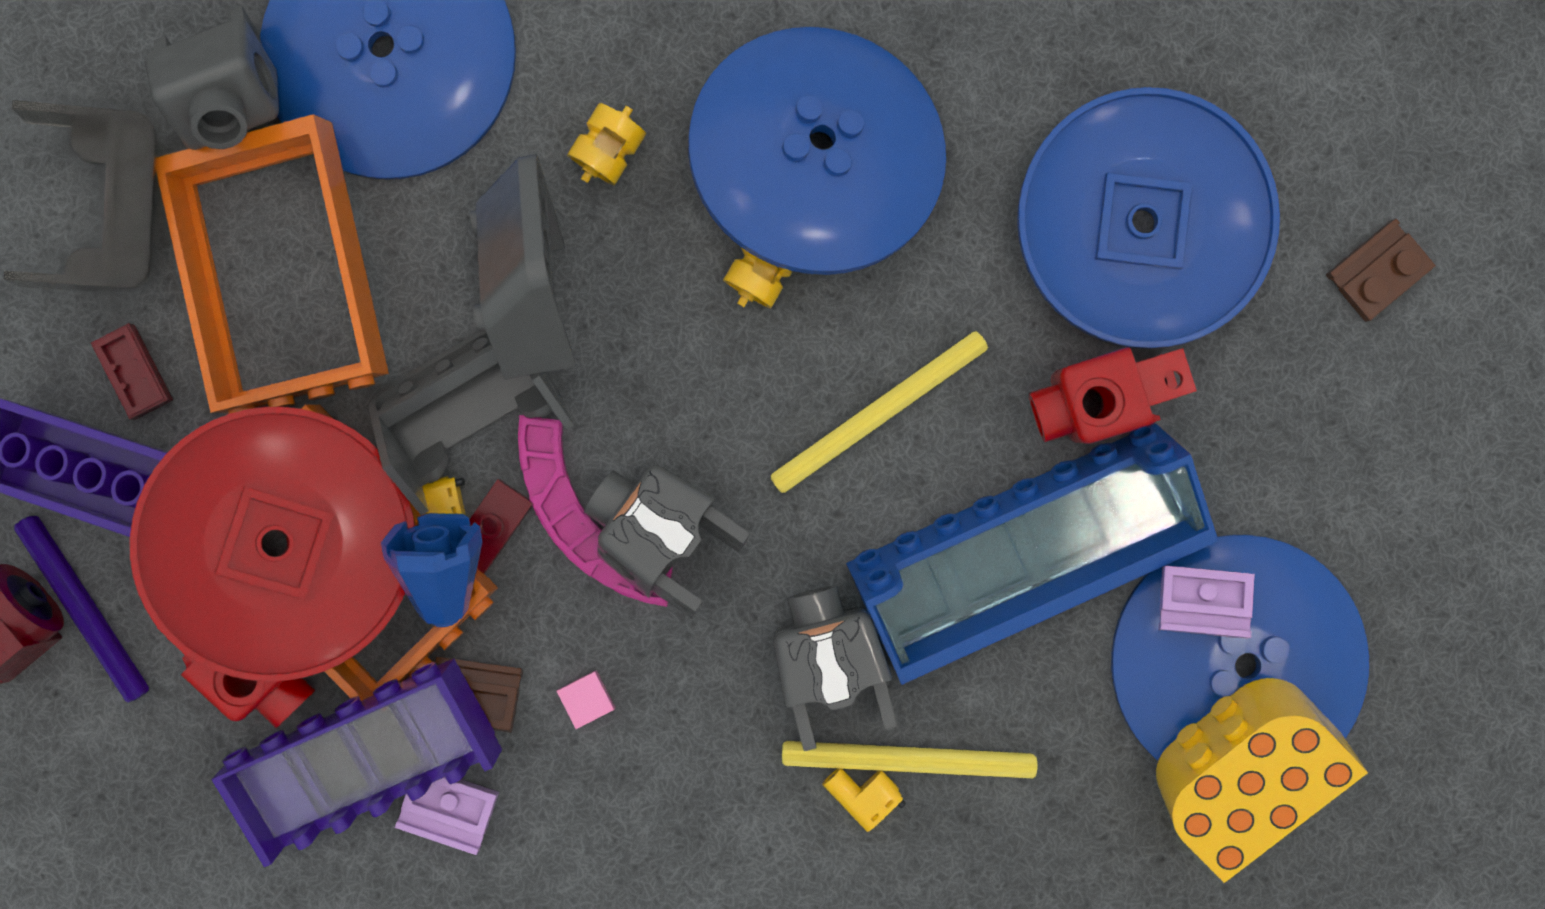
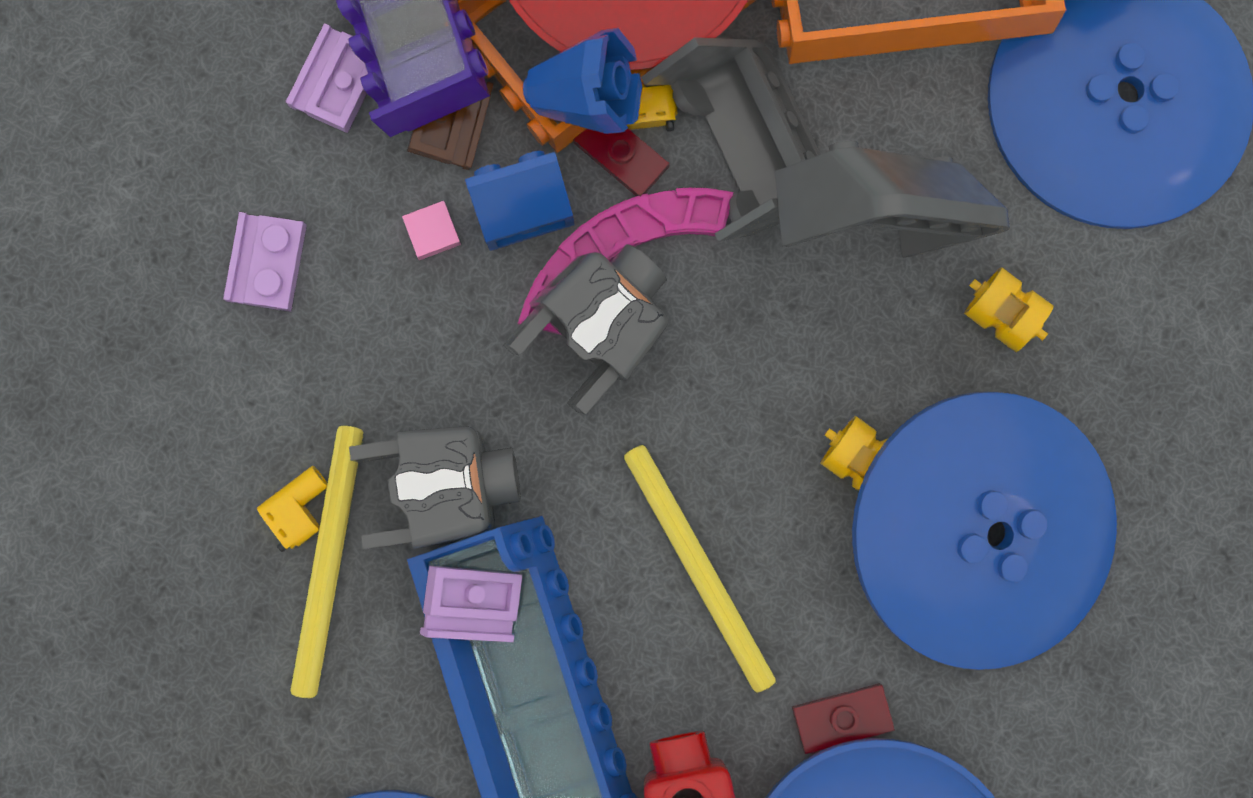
camera: 95 degrees right, 5 degrees down
(550, 618) = (520, 199): none -> blue slope
(632, 855) = (265, 261): none -> lavender plate
(936, 620) = (471, 604): none -> lavender plate
(1002, 265) = (843, 718): none -> dark red plate

